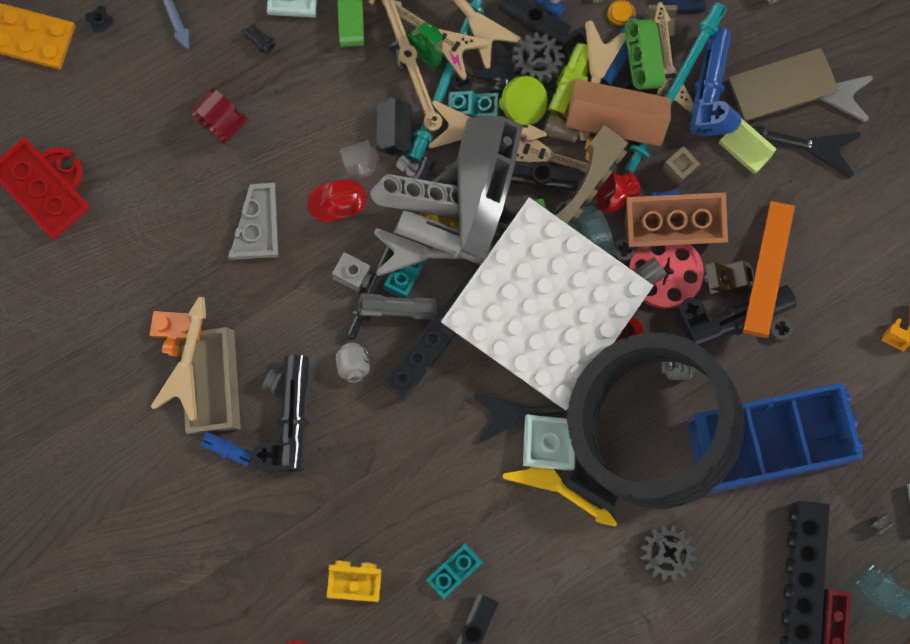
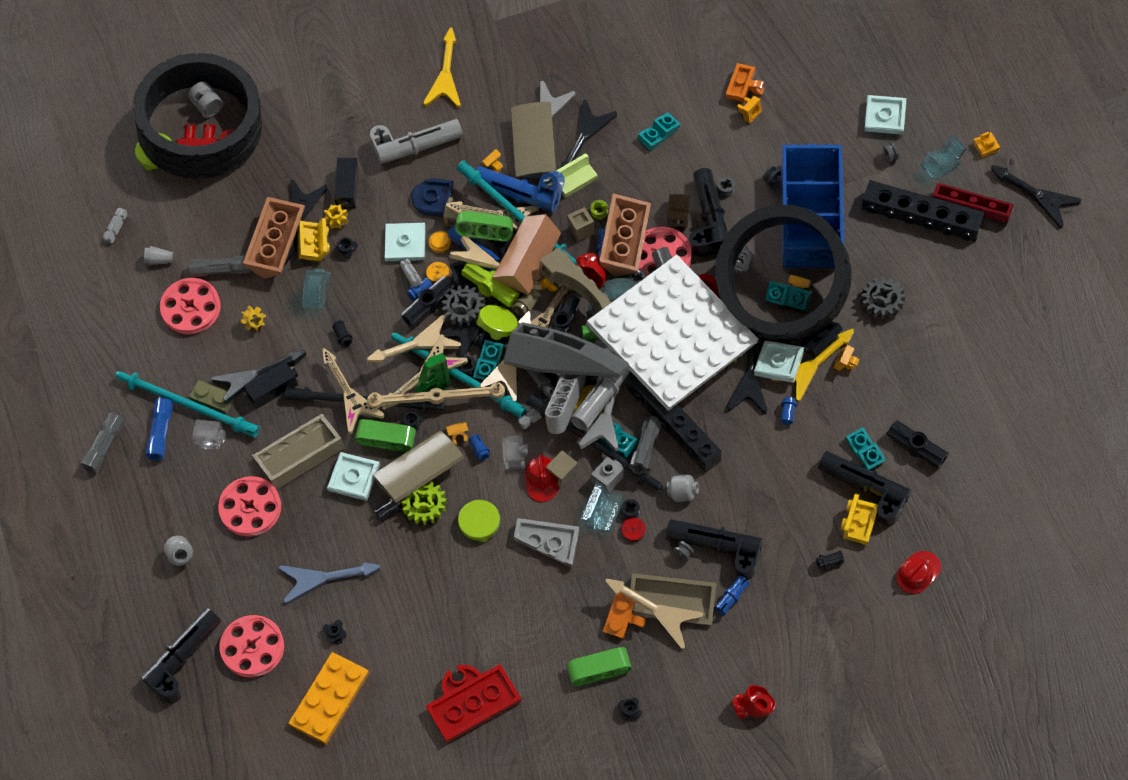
camera: 65 degrees left, 15 degrees down
(57, 361) = (629, 703): none -> black plate
(92, 504) = (754, 702): none -> red hair
(108, 316) = (599, 666): none -> bright green beam
(219, 114) = (450, 546): dark red brick -> none
(265, 141) = (479, 520): none -> lime tile
(277, 85) = (421, 509): none -> lime gear
(291, 318) = (633, 529): none -> red piece
(295, 555) = (829, 560): none -> black pin
(307, 275) = (602, 509): none -> clear light blue panel
(314, 57) = (418, 466): none -> dark tan slope
(316, 301) = (633, 503): none -> black bush
(347, 217) = (562, 467): none -> dark tan panel
(358, 120) = (481, 451): none -> blue pin
(375, 89) = (457, 429): none -> light orange tile
(382, 33) = (411, 415): none -> black plate
(393, 127) = (493, 419): black brick -> none
(397, 613) = (870, 483): none -> black piece
(485, 466) = (788, 407): none -> blue pin
(570, 522) = (845, 359): none -> light orange tile
(577, 18) = (436, 271): none -> light orange piece
(644, 433) = (788, 295): none -> teal slope
(665, 445) = (800, 282): none -> light orange tile
(703, 180) = (599, 216): none -> lime bush
(741, 44) = (492, 161): none -> light orange tile
(769, 270) = (679, 180): orange tile -> none
(809, 380) = (771, 175): none -> dark grey bush
(838, 232) = (661, 129): none -> teal slope

